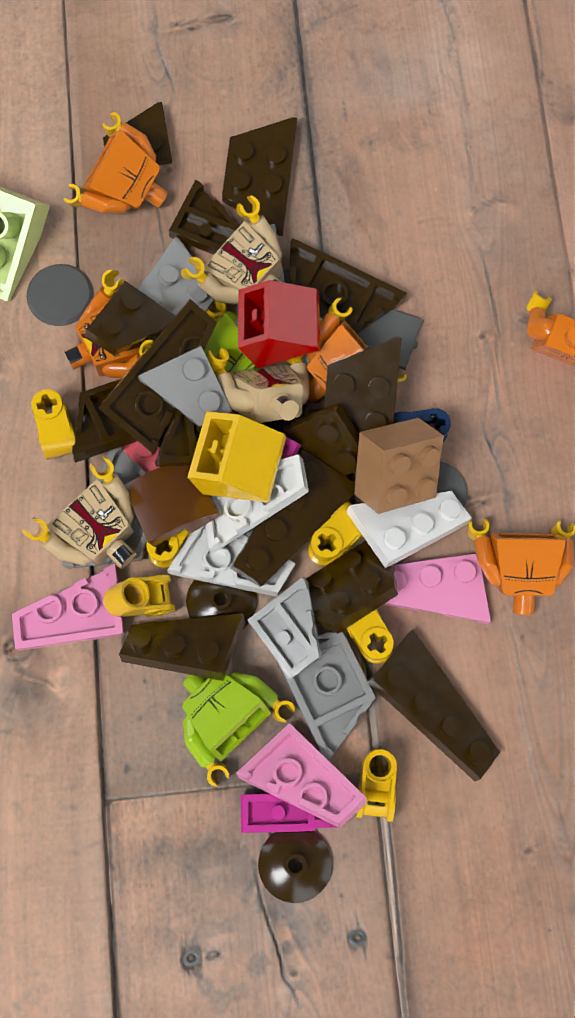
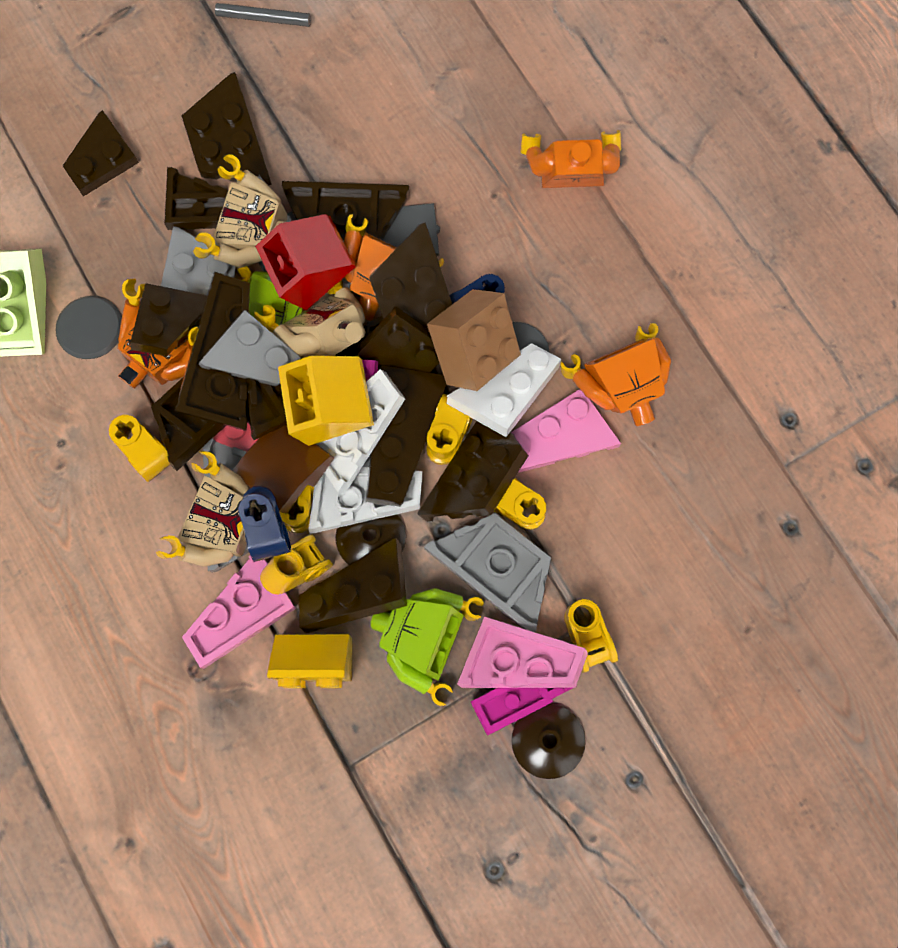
camera: 20 degrees left, 0 degrees up
(116, 687) = (311, 659): none -> yellow slope
(121, 174) = (95, 190): orange torso -> none
(128, 553) = (264, 530): none -> dark blue piece
(289, 628) = (445, 530): light grey wing -> none
(347, 74) = (262, 14): none -> dark grey bar
(429, 701) = (601, 539): dark brown wing -> none

